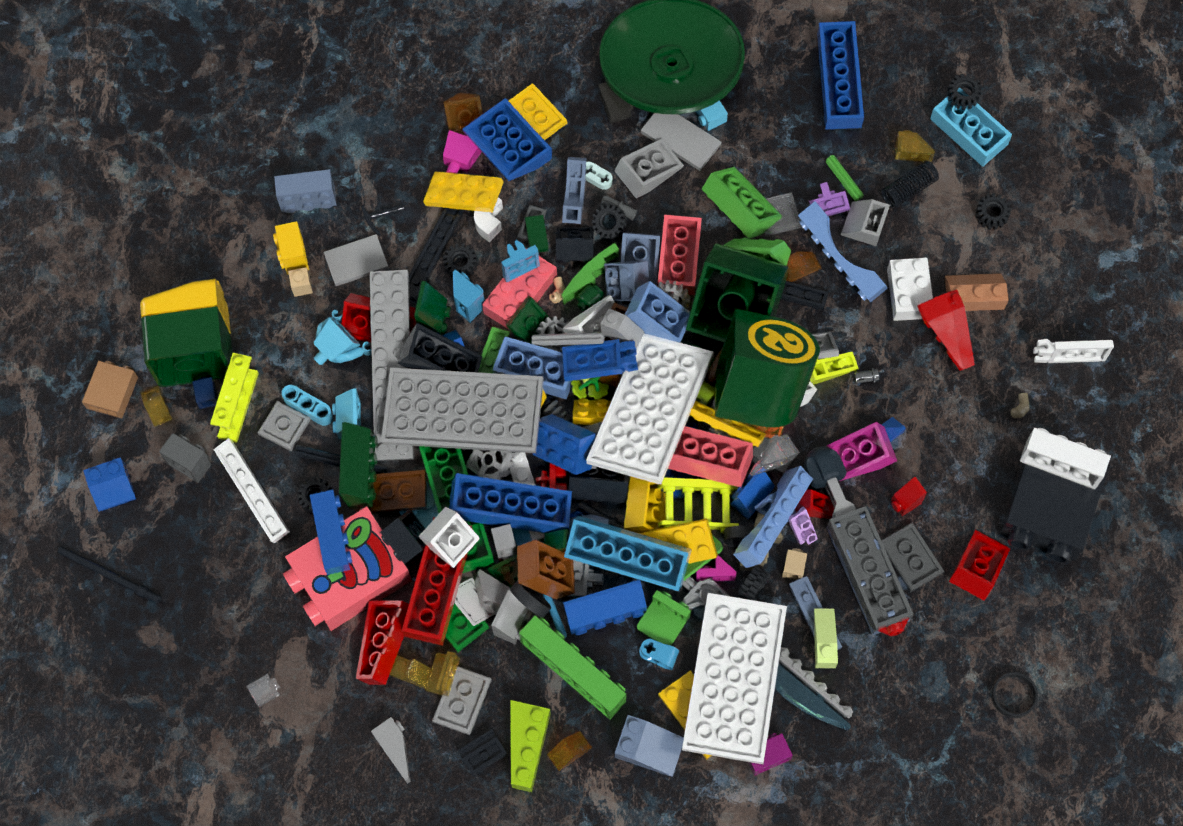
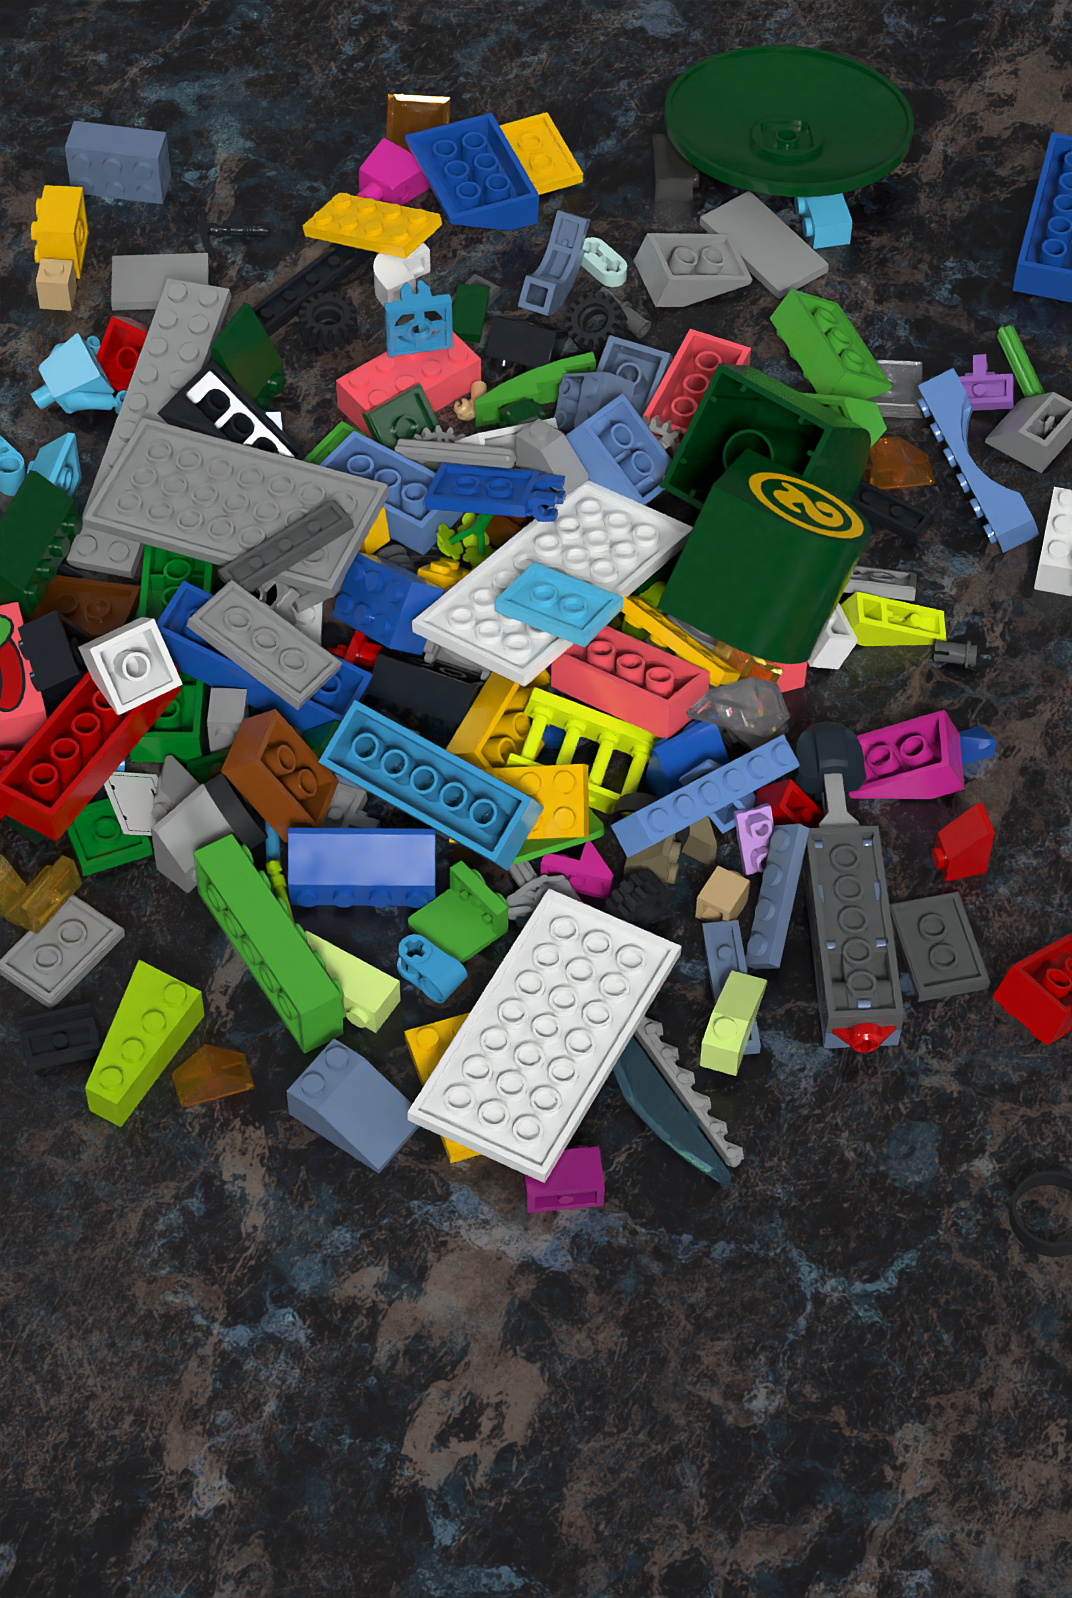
camera: 15 degrees right, 15 degrees down
(467, 296) = (315, 365): dark azure slope -> none
(502, 433) = (288, 547): none -> dark grey tile
(512, 497) = (264, 644): none -> light grey tile
(563, 628) = (278, 883): none -> lime piece
(629, 676) = (367, 990): none -> yellowish green slope
(663, 429) = (559, 604): none -> medium azure plate
(824, 559) = (776, 896): none -> sand blue plate

